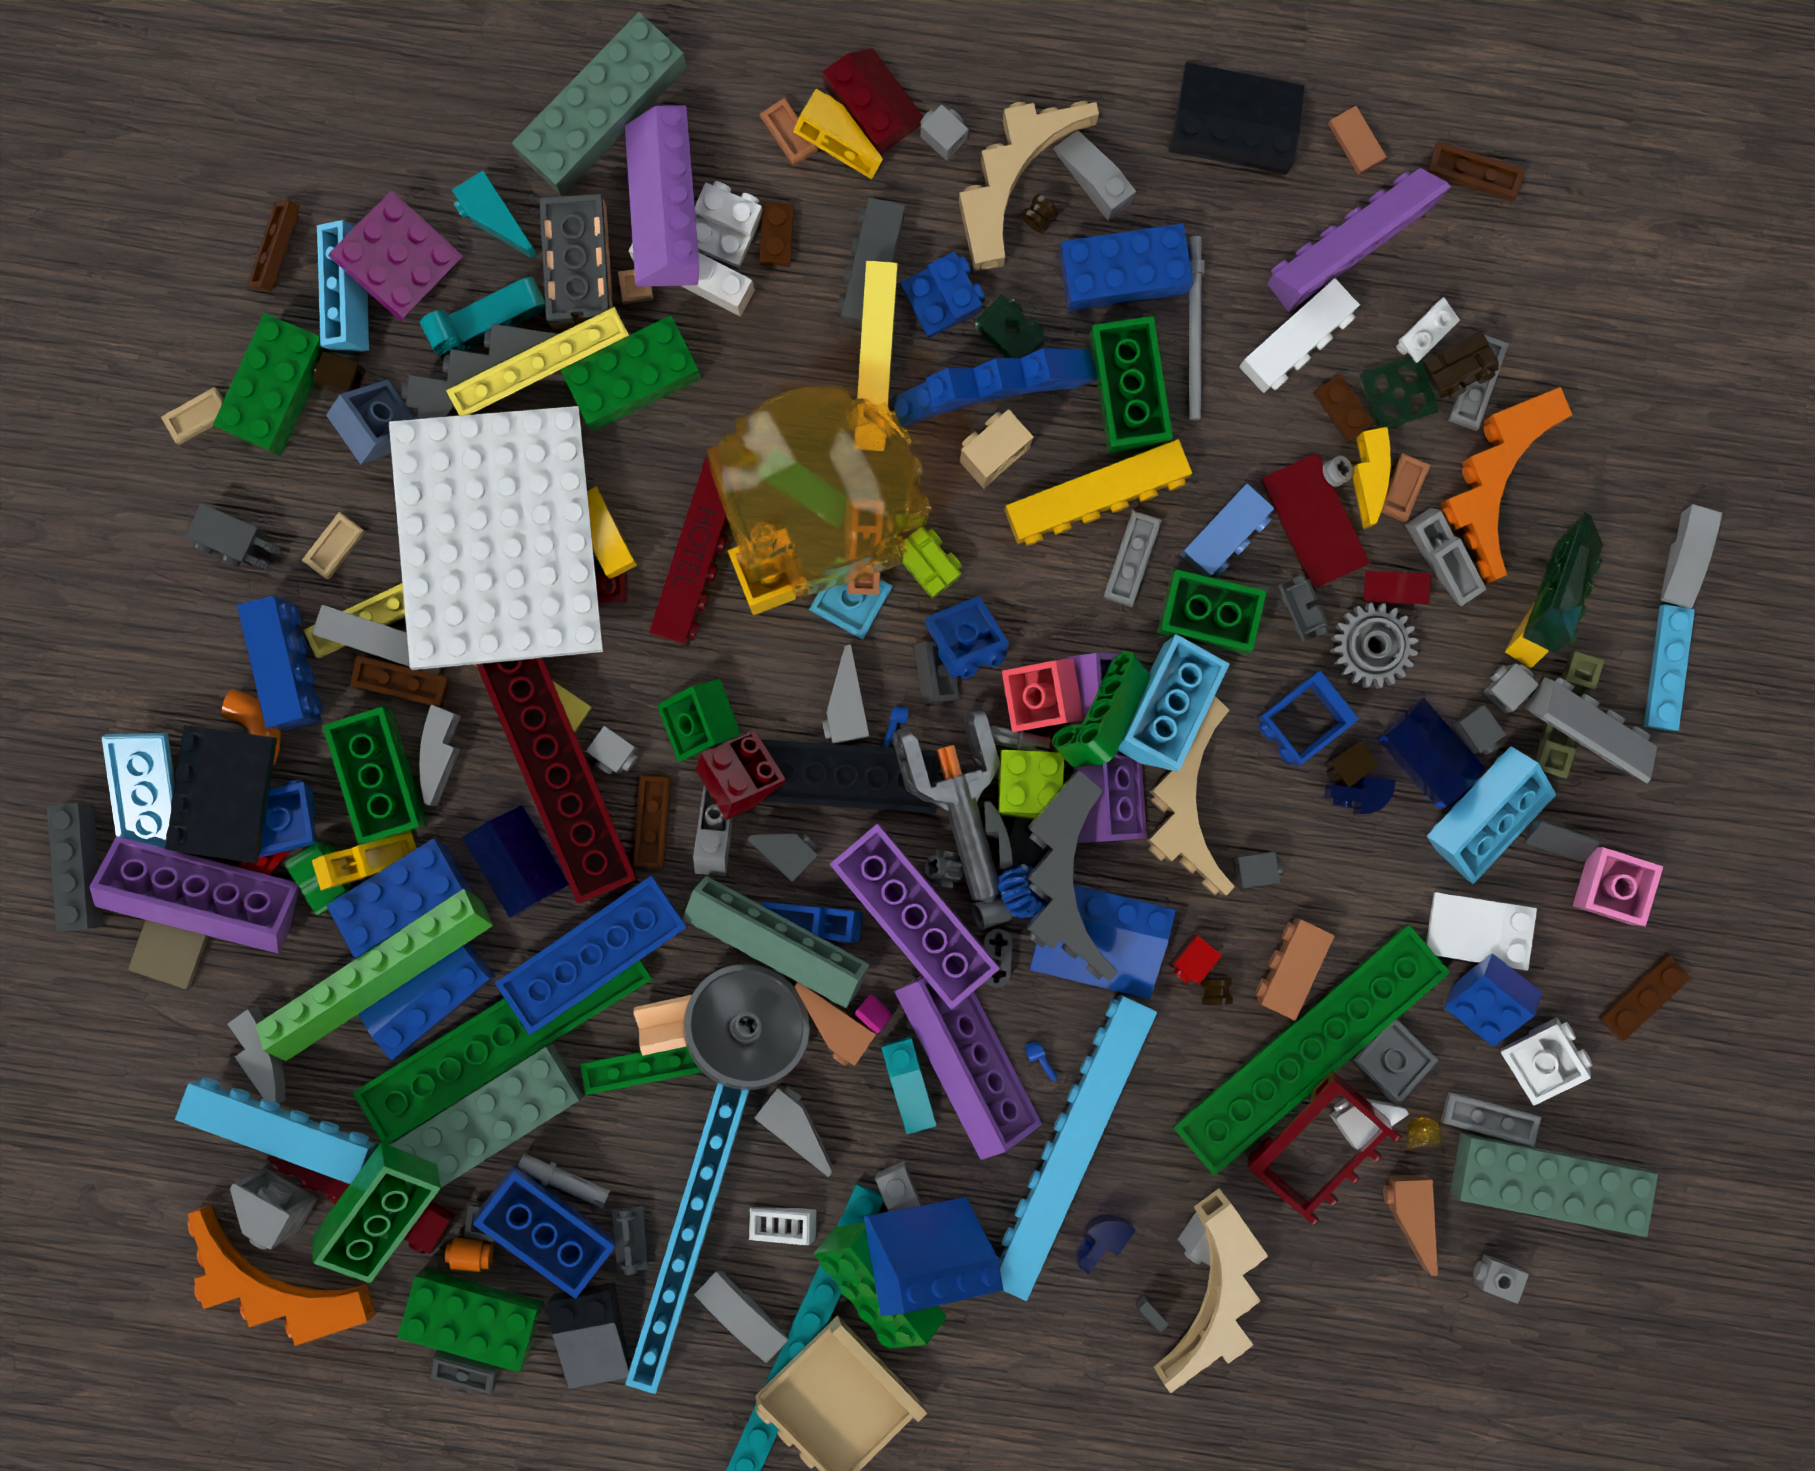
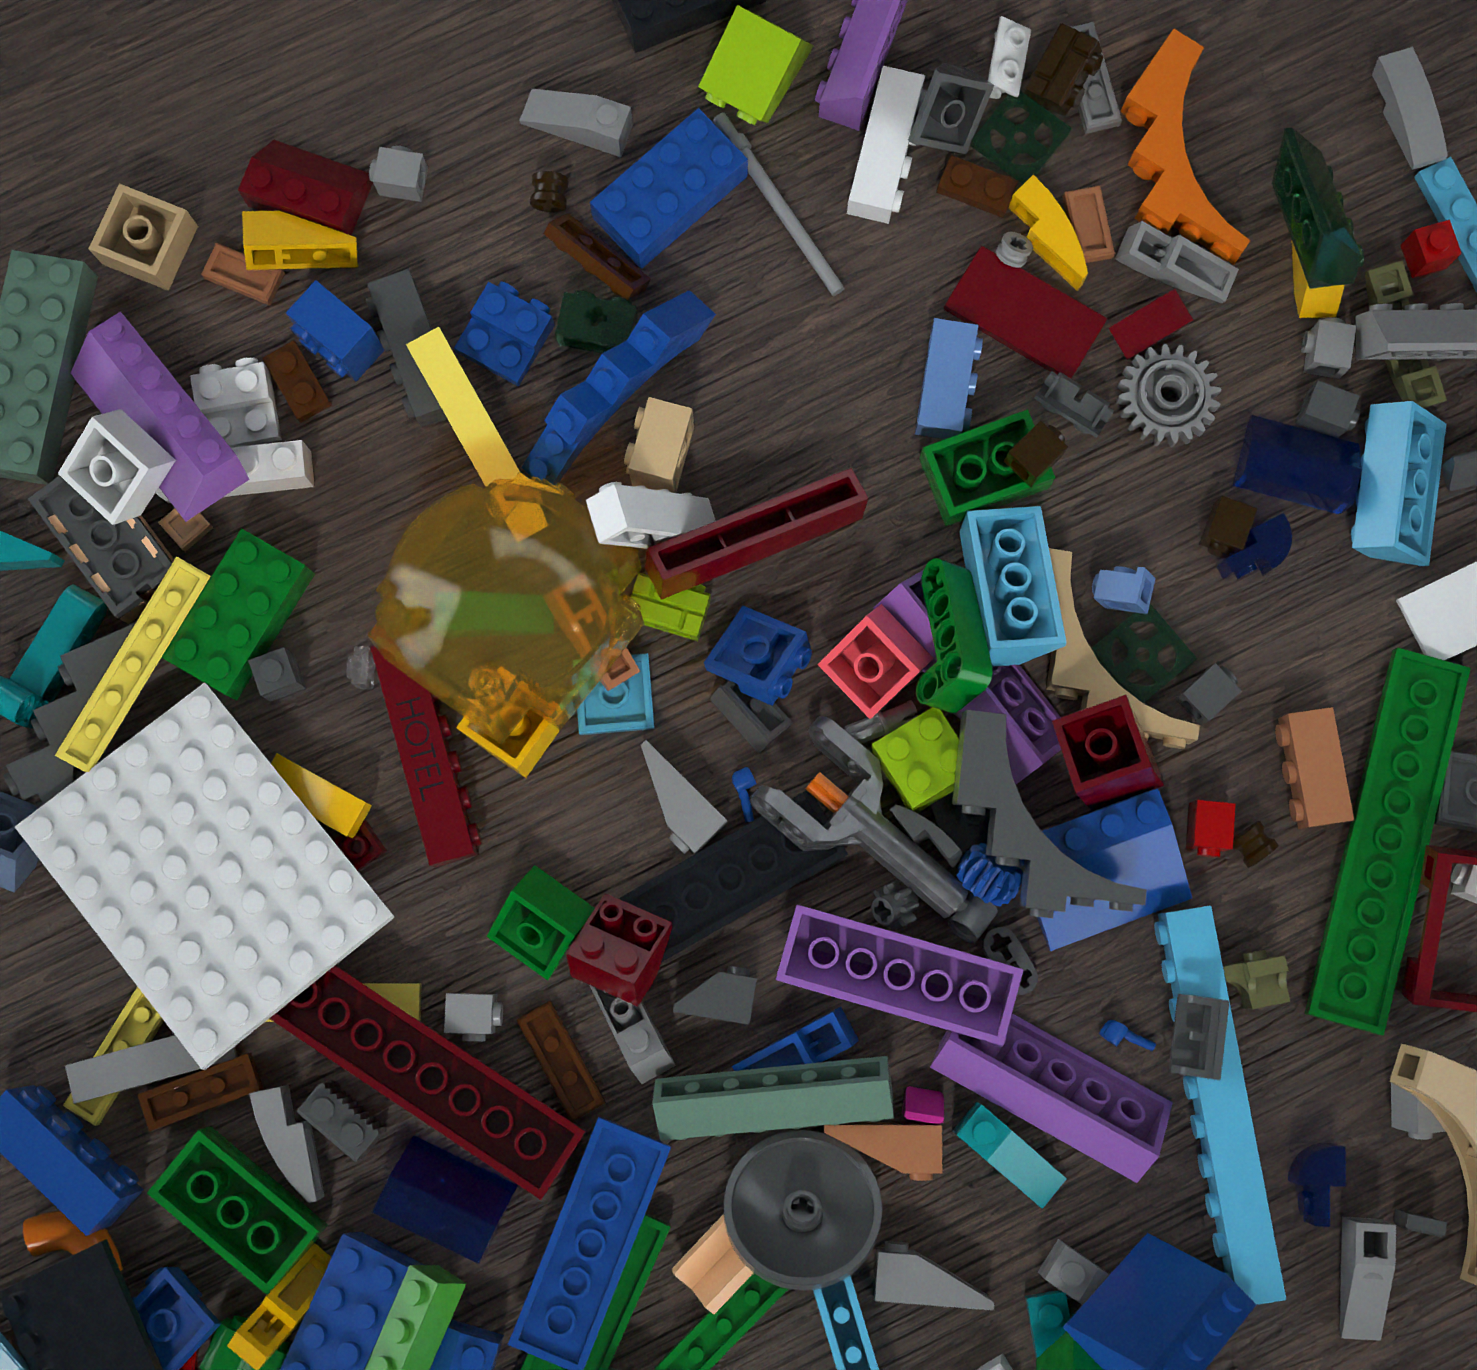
camera: 30 degrees left, 5 degrees down
(333, 546) = (39, 996): tan tile -> none
(480, 763) = (342, 1120): none -> dark grey brick
(613, 217) = (116, 466): none -> white brick
(631, 432) = (277, 674): none -> dark grey brick
(690, 466) = (361, 668): none -> clear plate
(736, 61) = (143, 237): none -> tan brick
(823, 211) = (334, 332): none -> blue brick
(954, 496) = (645, 516): none -> white brick
(1003, 165) = (480, 170): tan arch -> none
(1020, 552) = (755, 533): none -> dark red brick
(1042, 282) = (597, 256): none -> reddish brown plate
(1087, 1092) = (1199, 1036): none -> dark grey hinge
(1090, 1322) = (1366, 1276): none -> light grey slope
(1097, 492) = (794, 421): yellow brick -> none
(1130, 384) = (753, 298): green brick -> none
(1132, 558) = (871, 466): light grey tile -> none
(1156, 863) = (1107, 753): none -> dark red slope
(1156, 1082) = (1259, 979): none -> olive brick
(1232, 825) = (1152, 666): none -> clear green piece
(1244, 217) = (753, 66): none -> lime slope
(1248, 759) = (1124, 589): none -> medium blue brick
(1250, 625) = (1036, 453): none -> dark brown brick
(1331, 700) = (1161, 476): blue window -> none
(1361, 341) = (951, 109): none -> dark grey slope
(1632, 665) = (1430, 249): none -> red brick

